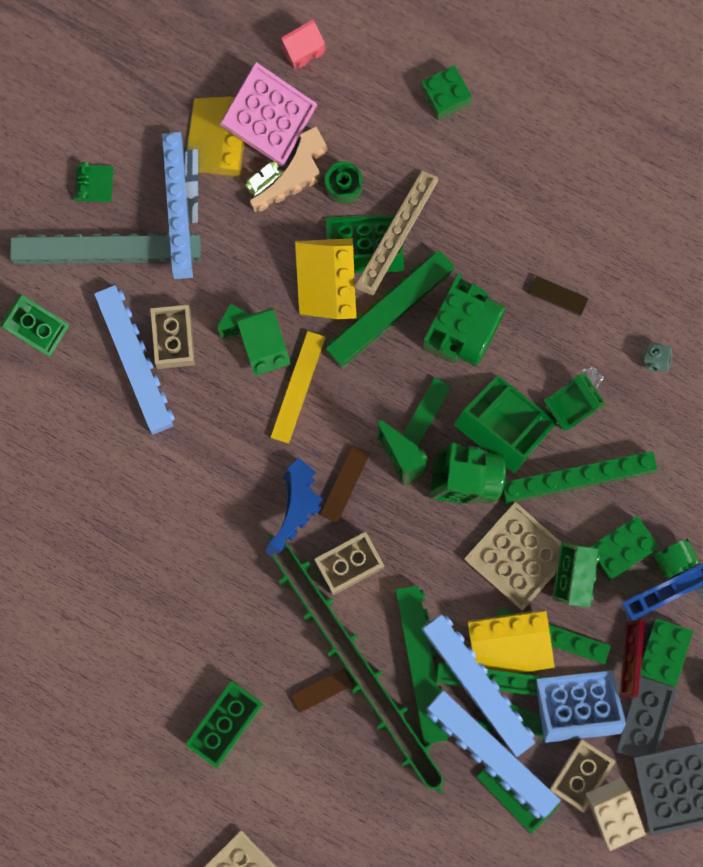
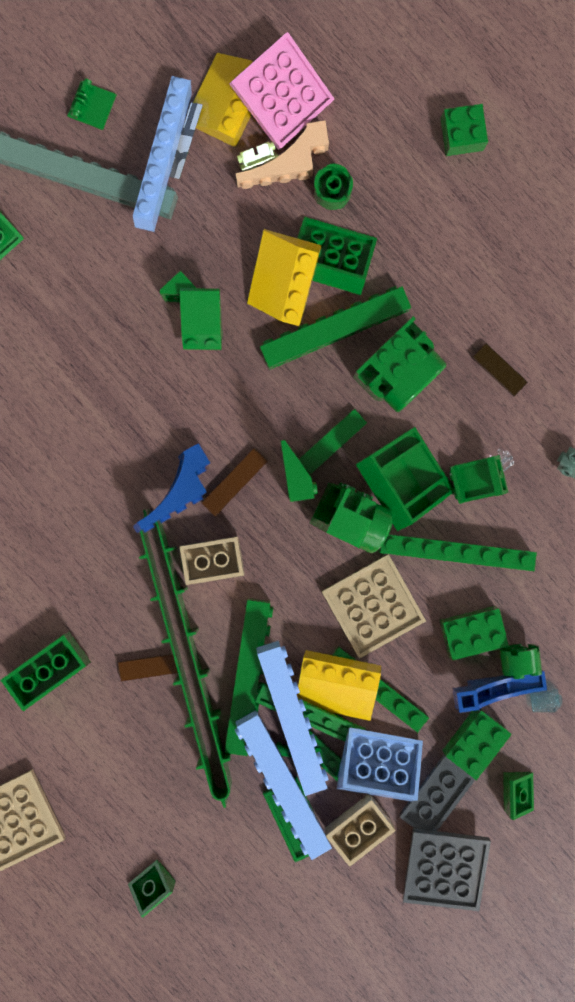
camera: 15 degrees right, 10 degrees up
(134, 360) = (73, 293): light blue brick -> none
(172, 336) = (117, 283): tan brick -> none
(298, 387) = (222, 374): yellow tile -> none
(303, 44) = (340, 31): coral slope -> none
(396, 233) = (366, 255): tan tile -> none
(575, 574) = (421, 645): green brick -> none
(615, 814) = (378, 878): tan brick -> none
(632, 659) = (443, 741): dark red tile -> none

